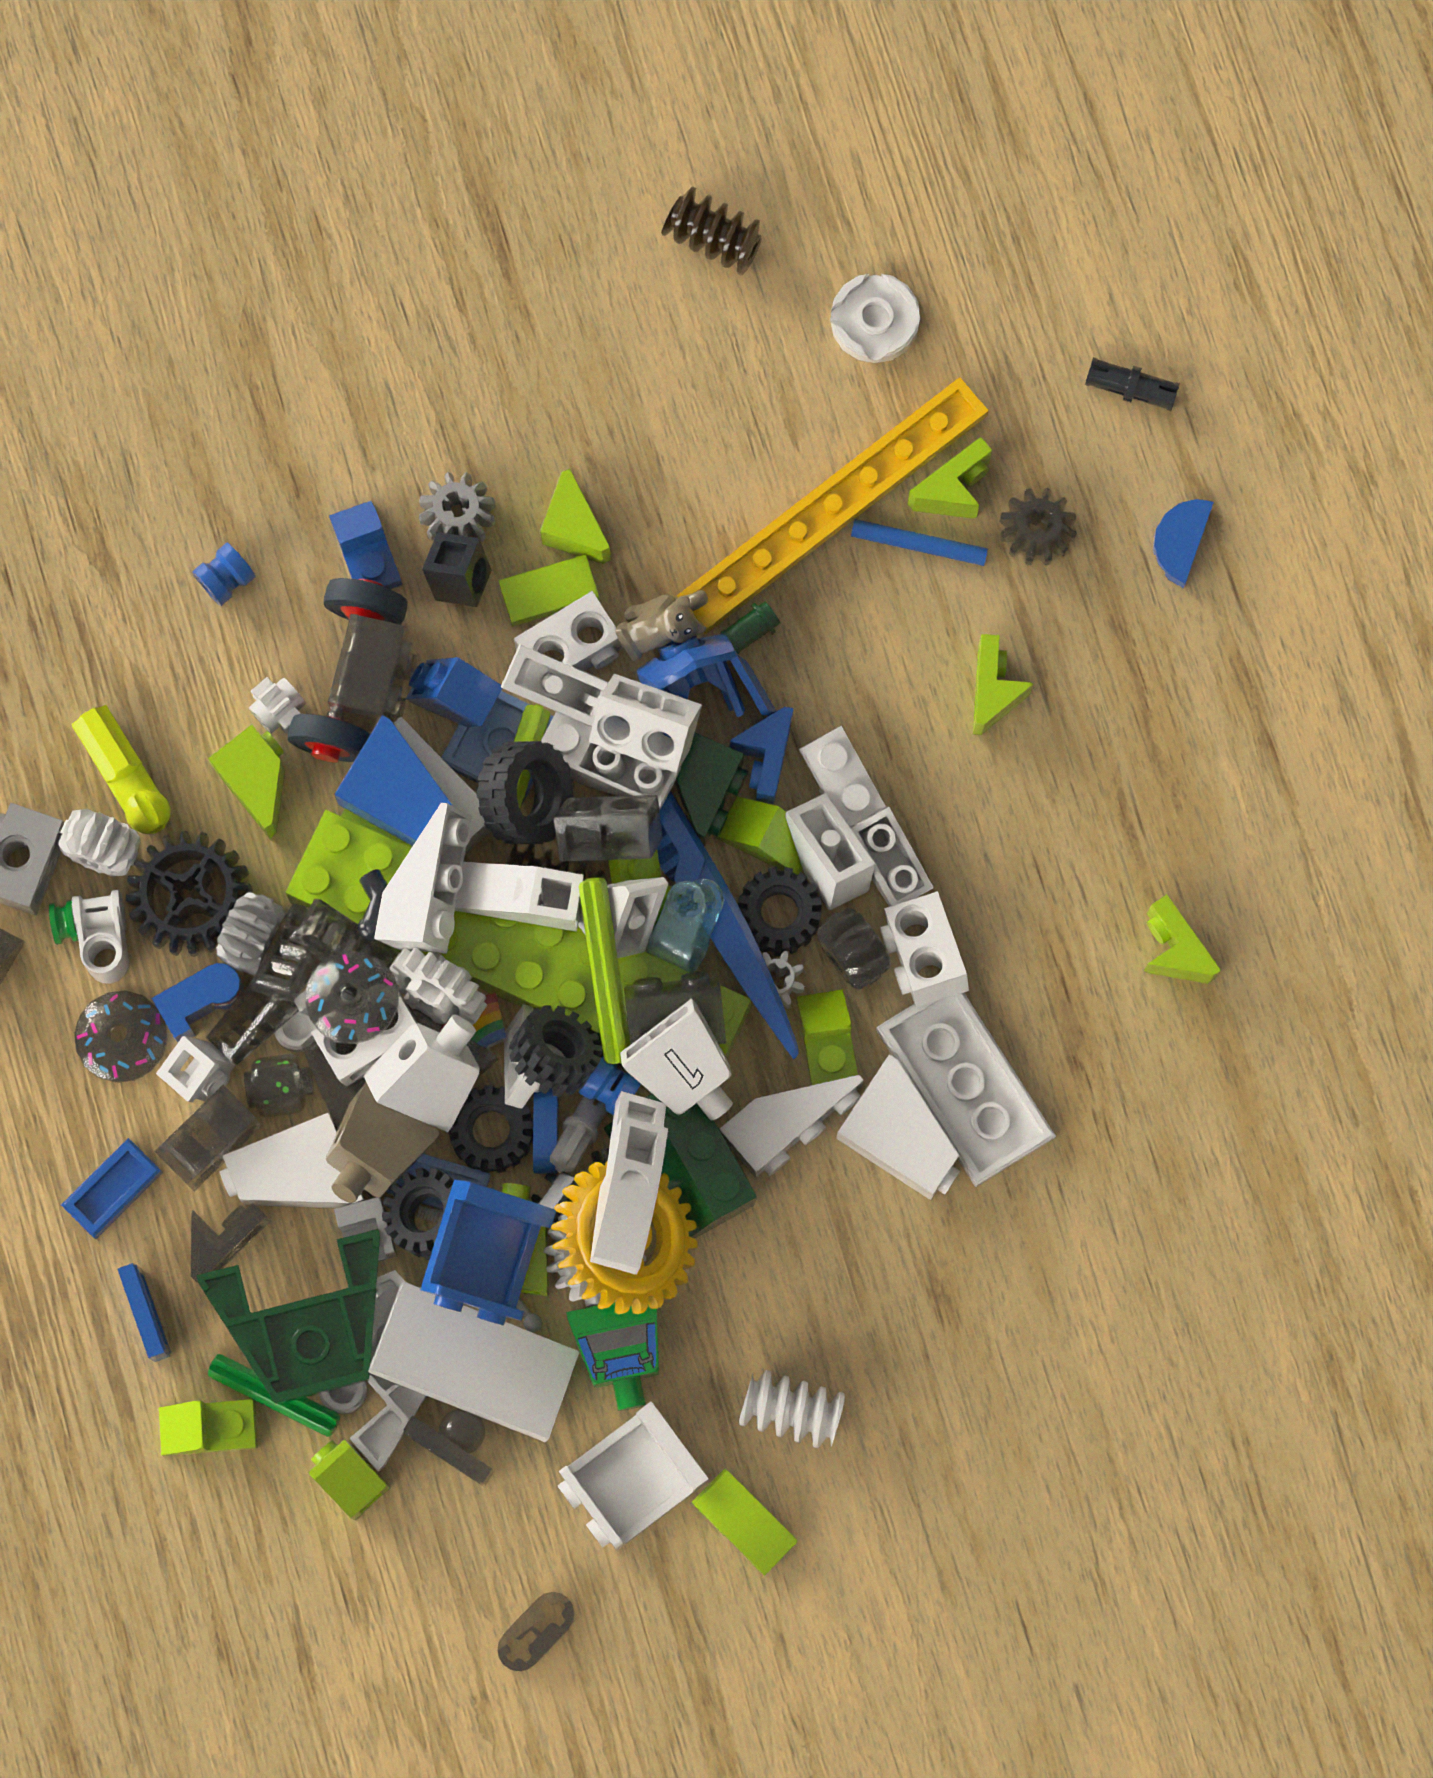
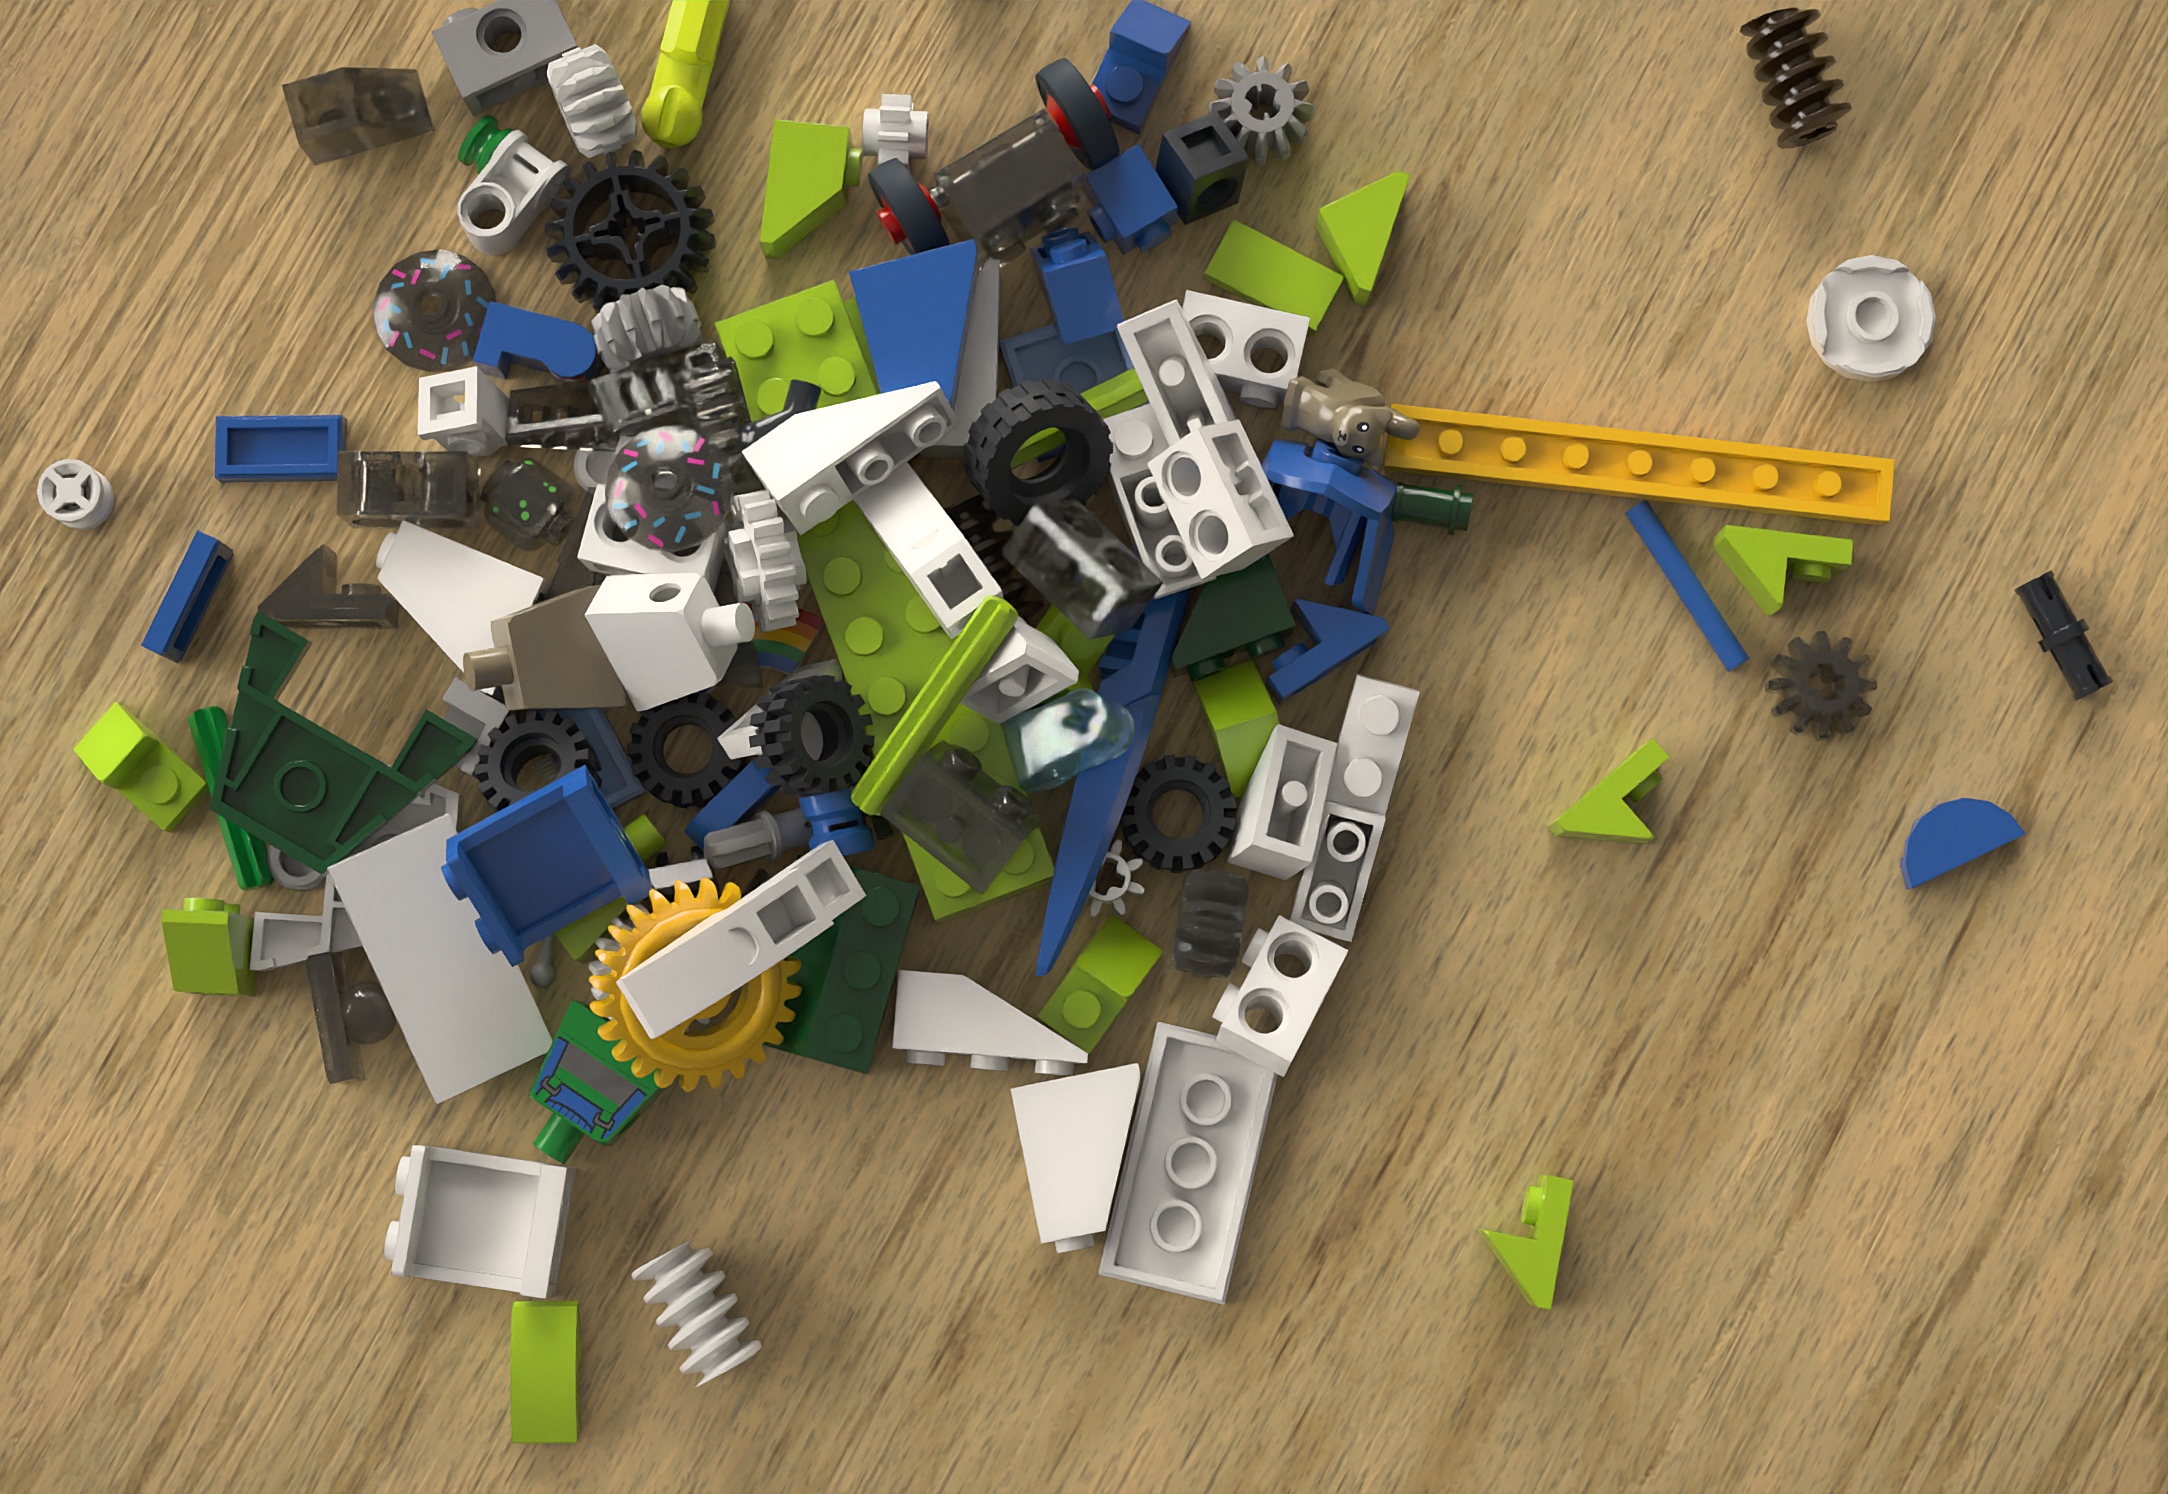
camera: 45 degrees right, 5 degrees up
(17, 1319) = (63, 486): none -> white wheel
(437, 622) = (1130, 202): none -> blue brick
(527, 1622) = (247, 1289): clear smoke beam -> none
(681, 1063) = (914, 871): white torso -> none

